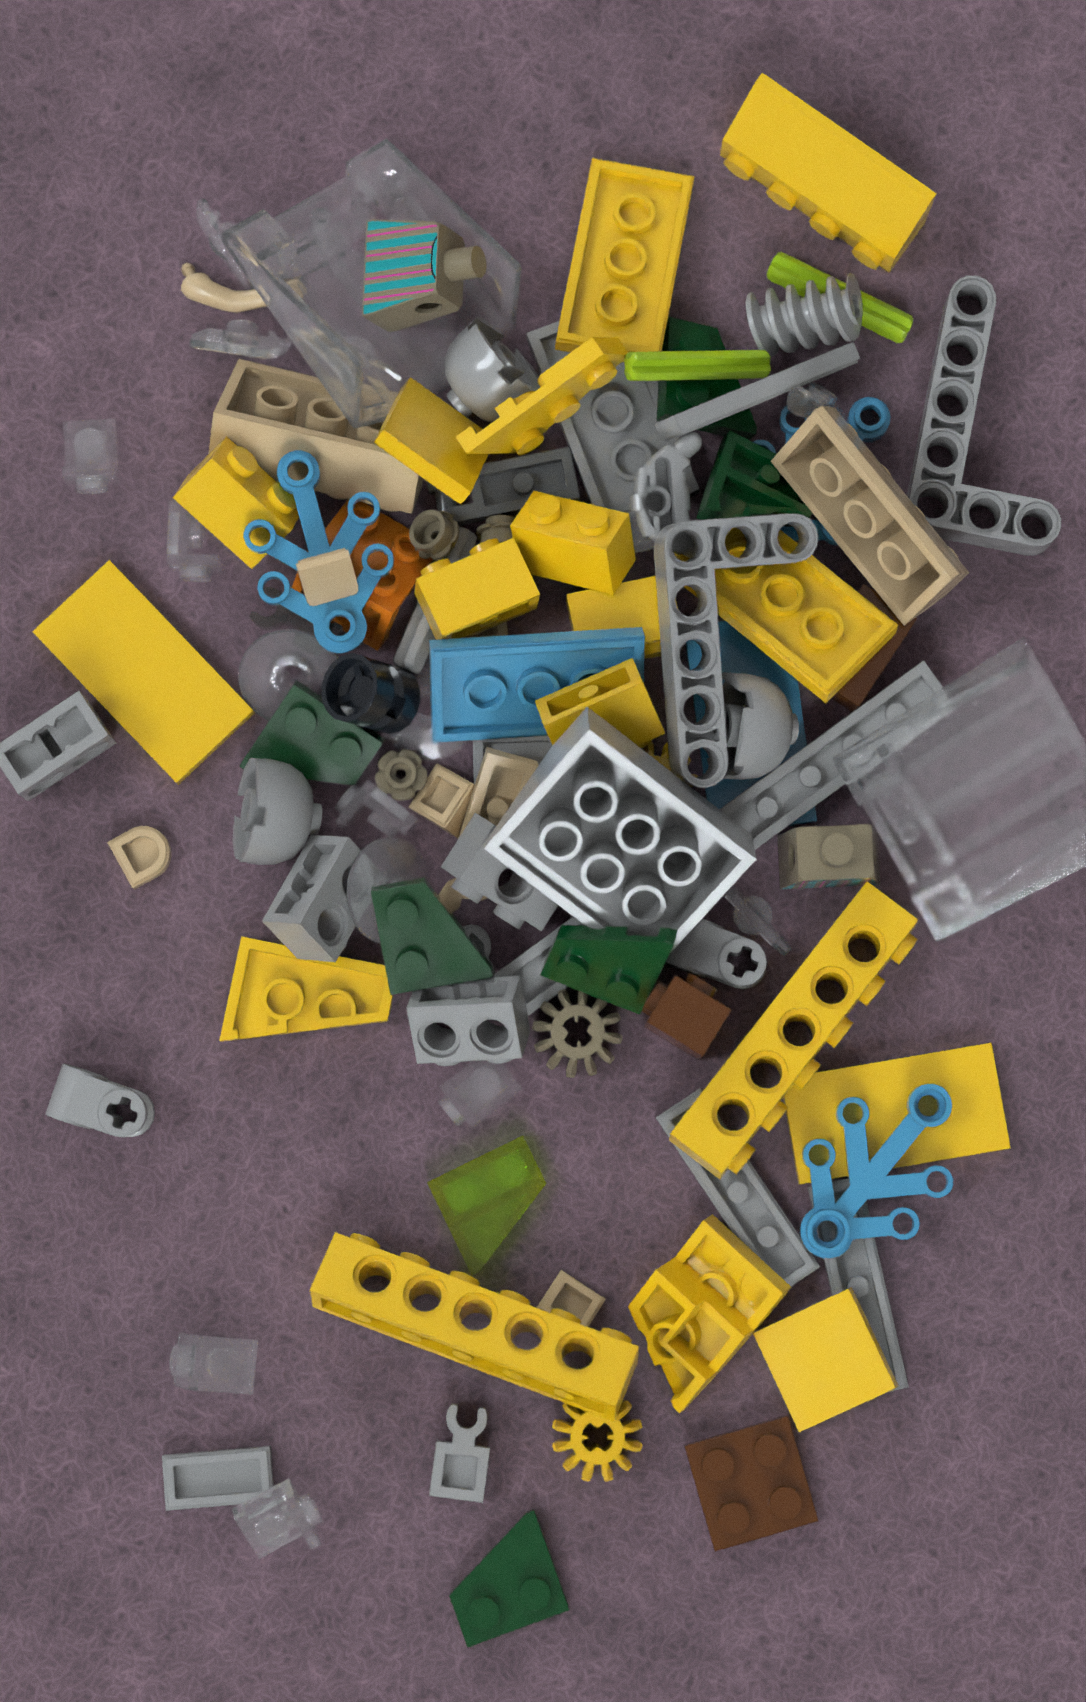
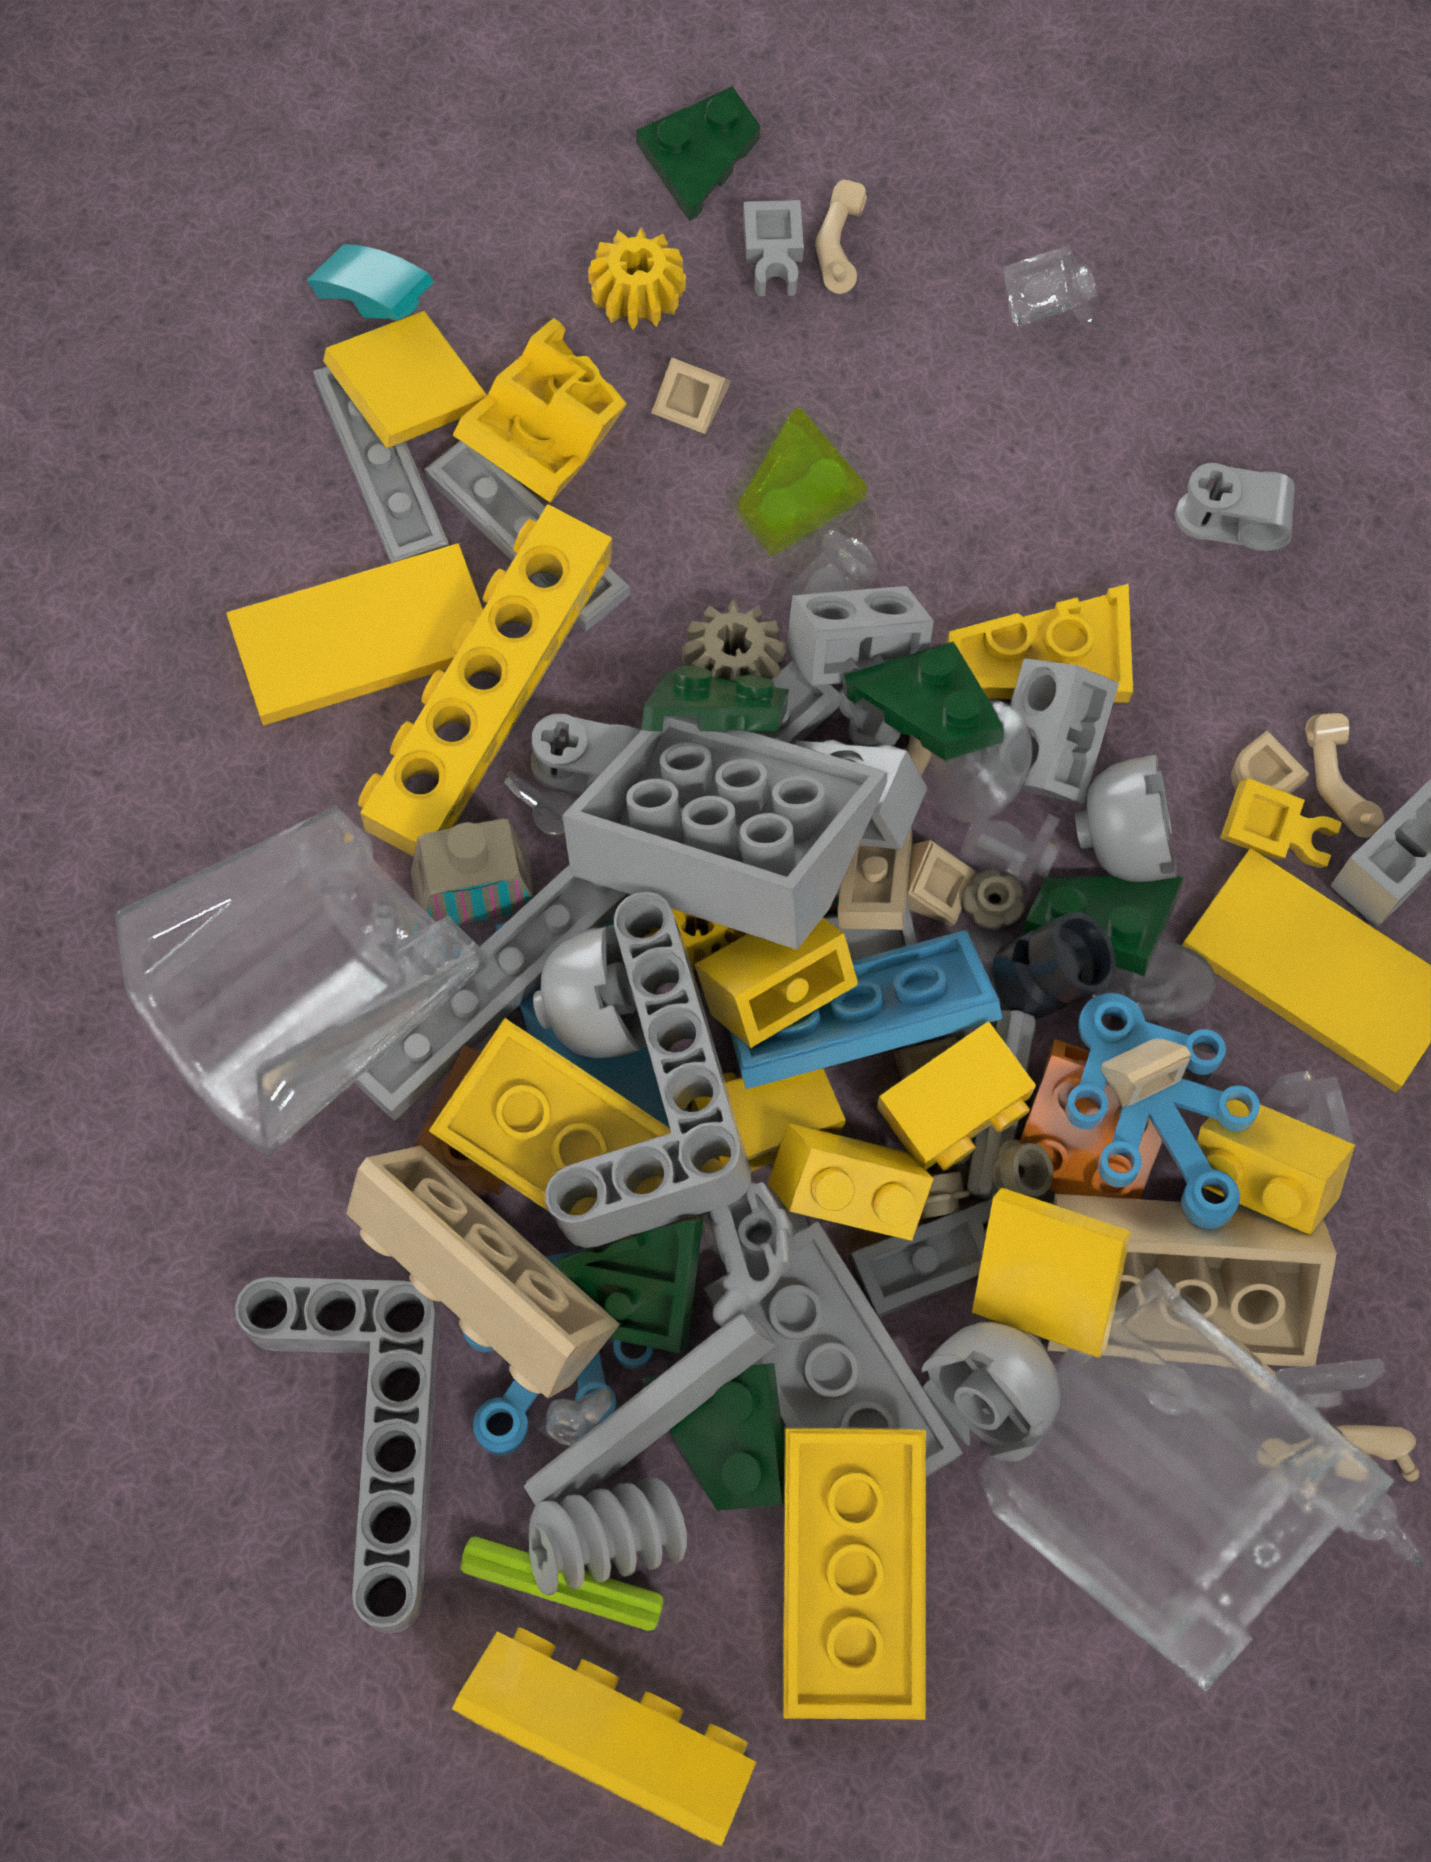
camera: 165 degrees right, 15 degrees down
(75, 804) = (1357, 813): none -> tan piece
(151, 801) = (1272, 823): none -> yellow plate
(216, 1477) = (1017, 199): light grey tile -> none
(278, 1518) = (947, 163): clear bracket -> none
(406, 1424) = (836, 270): none -> tan piece
(415, 272) = (1128, 1495): dark tan torso -> none
(490, 1350) = (934, 357): yellow brick -> none
(557, 399) = (912, 1352): yellow wing -> none
(685, 1014) = (612, 667): reddish brown brick -> none
(697, 365) = (736, 1430): lime axle -> none
(751, 1483) = (474, 267): reddish brown plate -> none
(845, 1467) = (372, 279): none -> teal slope
(869, 1178) = (377, 552): dark azure plant -> none

